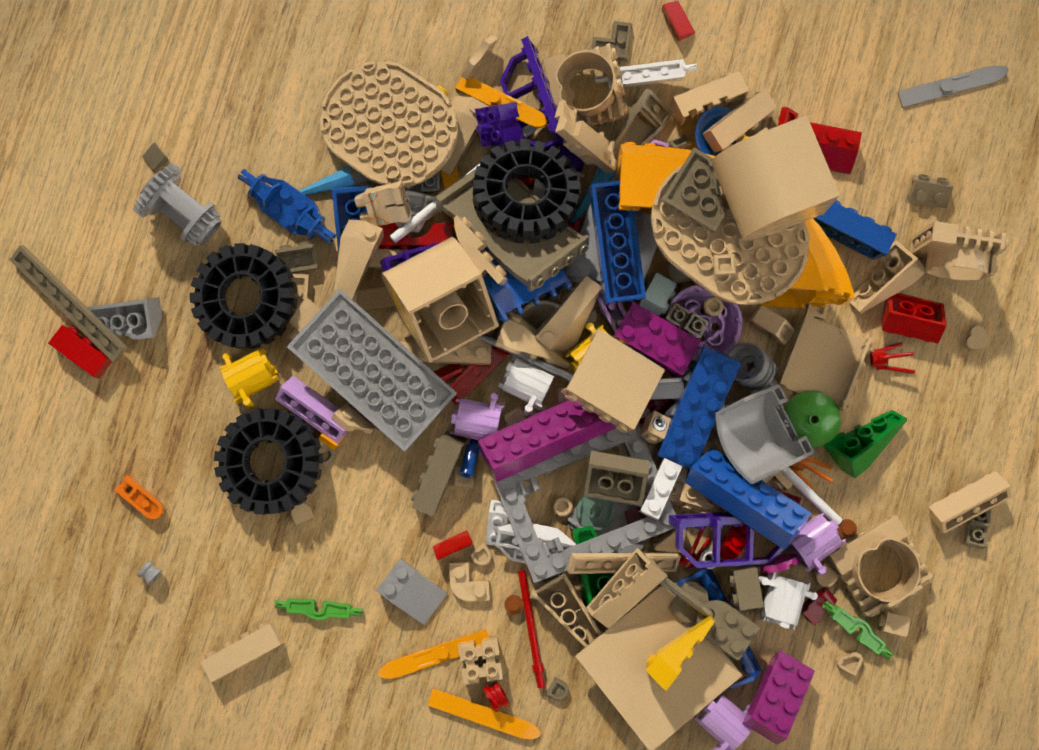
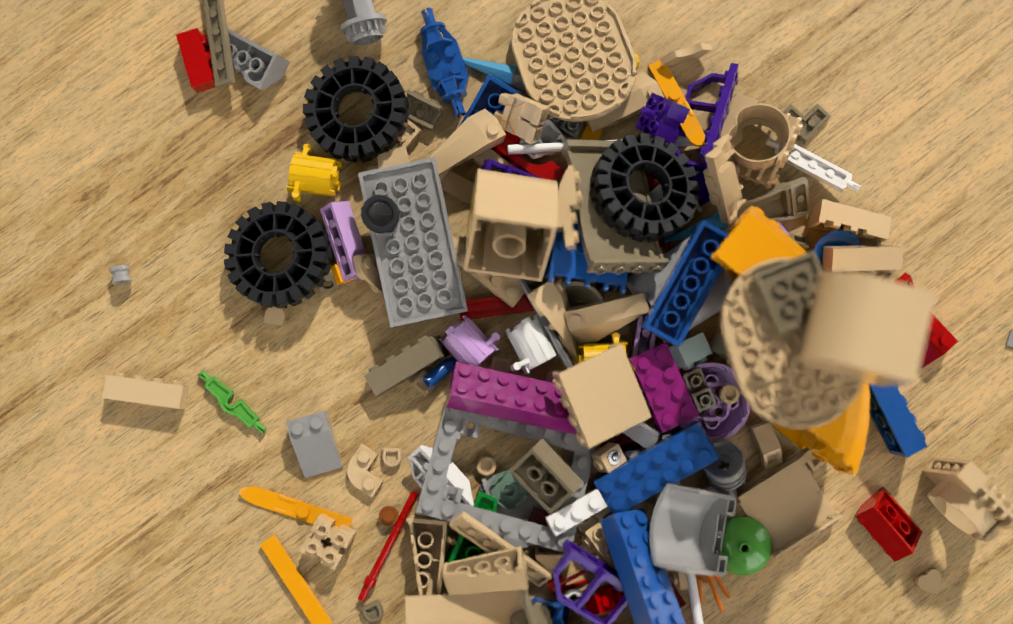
camera: 30 degrees right, 0 degrees up
(140, 498) = (157, 210): orange plate -> none
(332, 381) = (380, 199): none -> black tyre
(449, 371) = (474, 289): red slope -> none
(452, 545) = (375, 431): red slope -> none
(496, 519) = (425, 436): white bracket -> none
(496, 696) = (319, 579): red wheel -> none
(678, 20) = (870, 140): red slope -> none
(859, 448) = (767, 599): green wedge -> none
(879, 359) = (835, 538): red plant -> none
(890, 276) = (893, 477): tan wedge -> none
(930, 191) = (979, 431): dark tan bracket -> none

